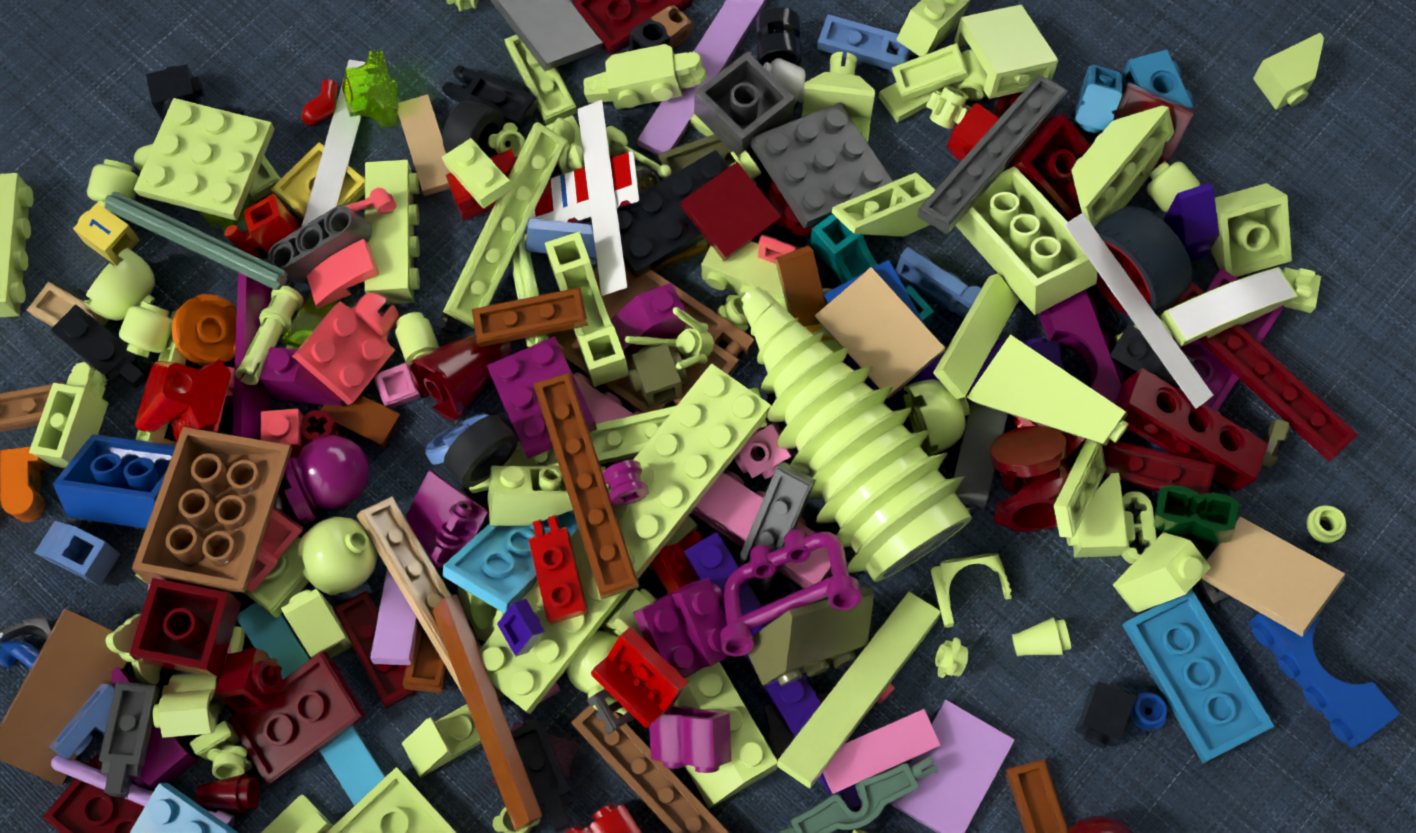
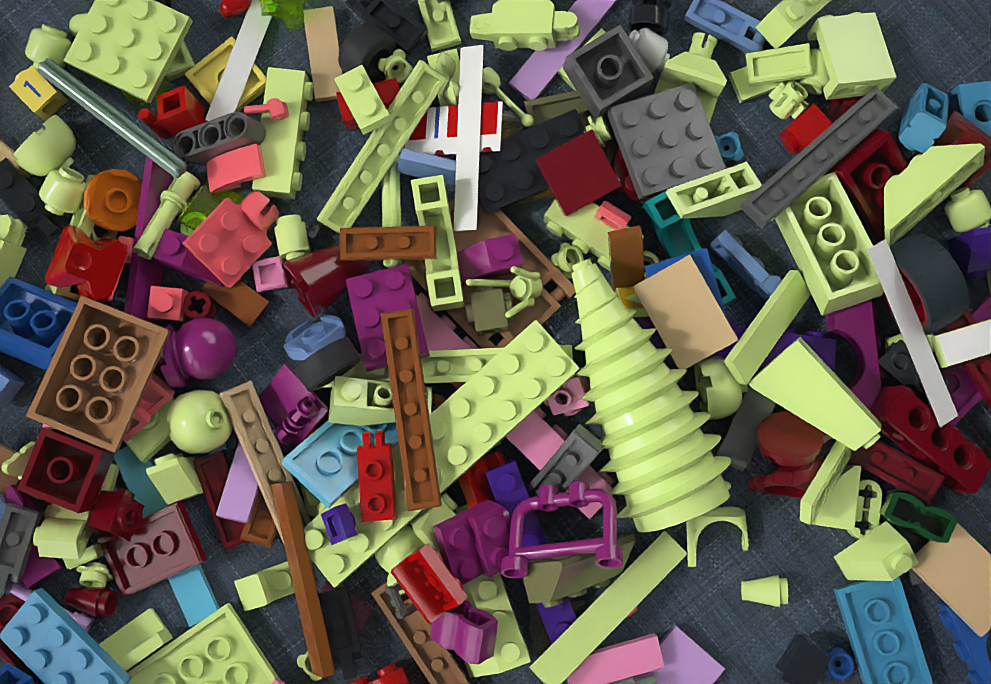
camera: 10 degrees right, 15 degrees up
(625, 483) = (444, 418): magenta wheel -> none
(896, 160) = (731, 140): none -> dark azure plate
(951, 658) = (688, 594): yellowish green plate -> none

